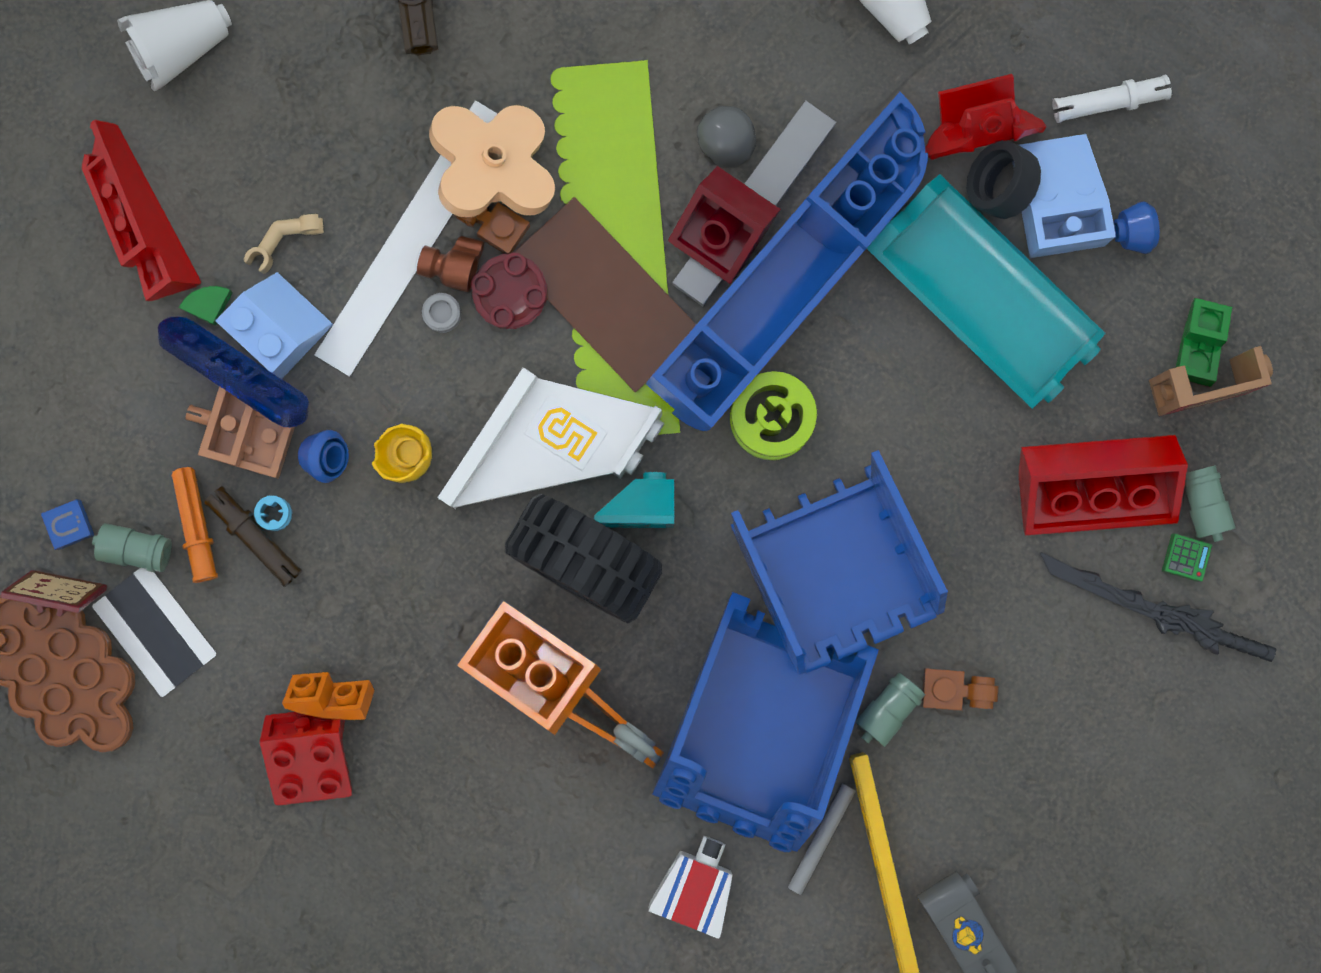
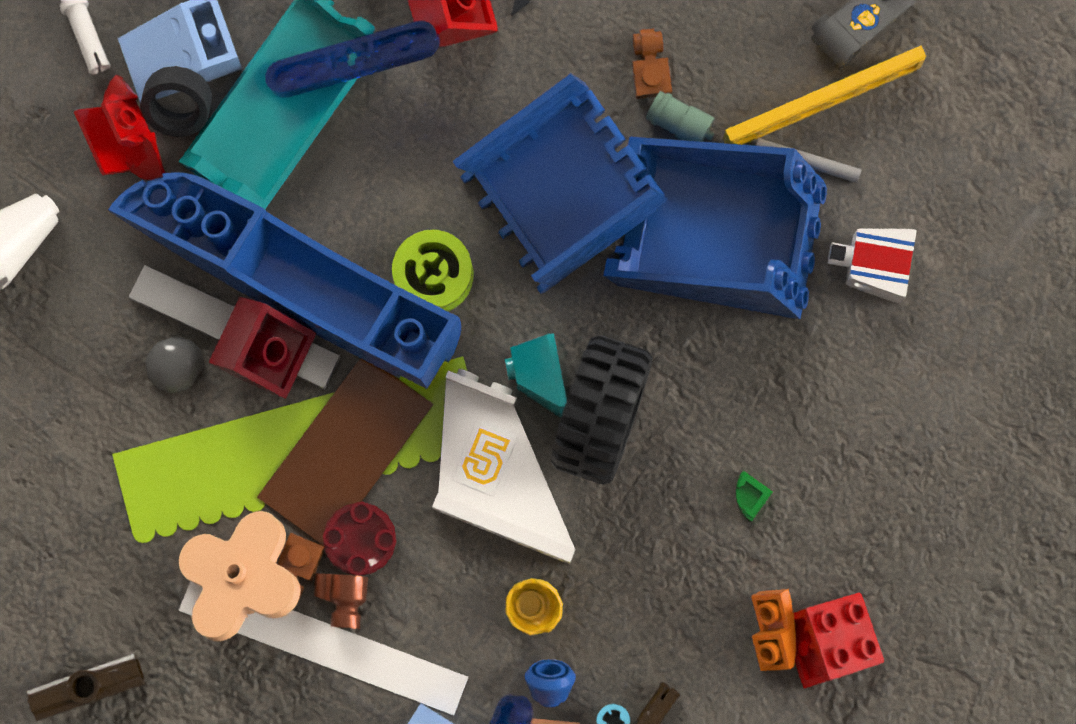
camera: 100 degrees left, 5 degrees down
(441, 312) = (391, 600): light grey tile -> none
(474, 702) = (750, 495): none -> green tile
(545, 679) = (717, 427): orange slope -> none
(1015, 343) = (330, 66): none -> clear blue piece

